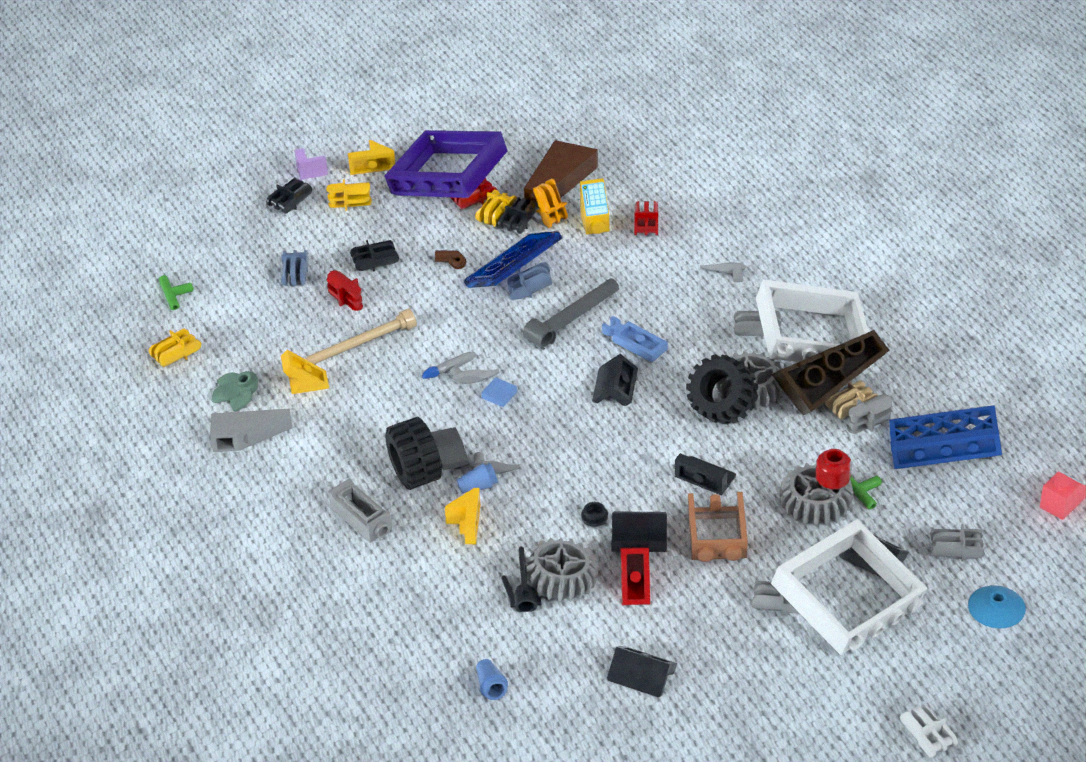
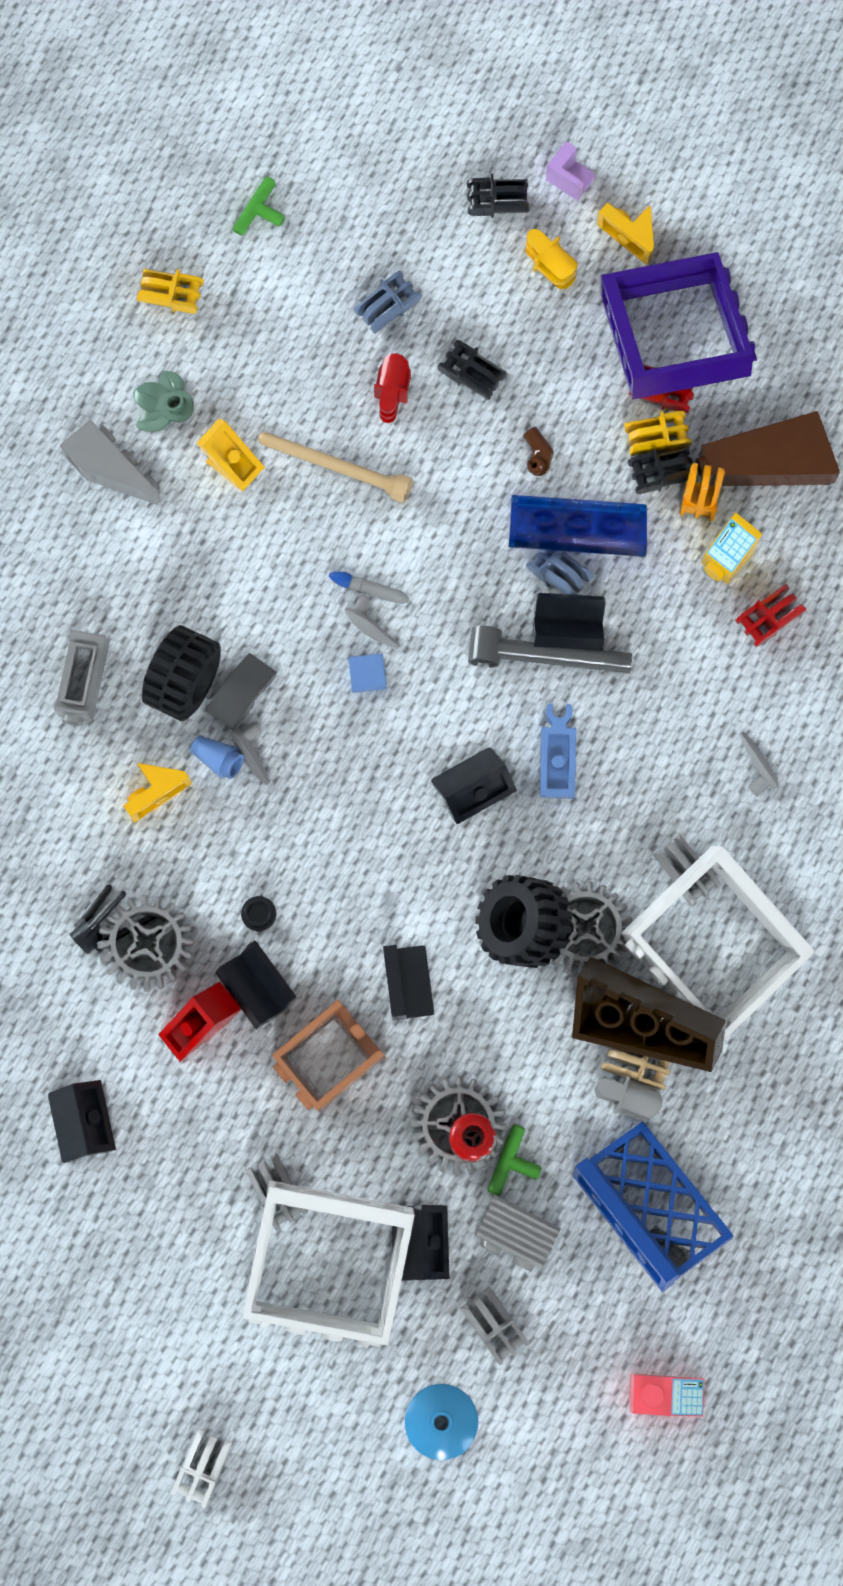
camera: 50 degrees right, 35 degrees up
(562, 290) = (569, 621): none -> black panel
(908, 503) = (517, 1233): none -> light grey brick

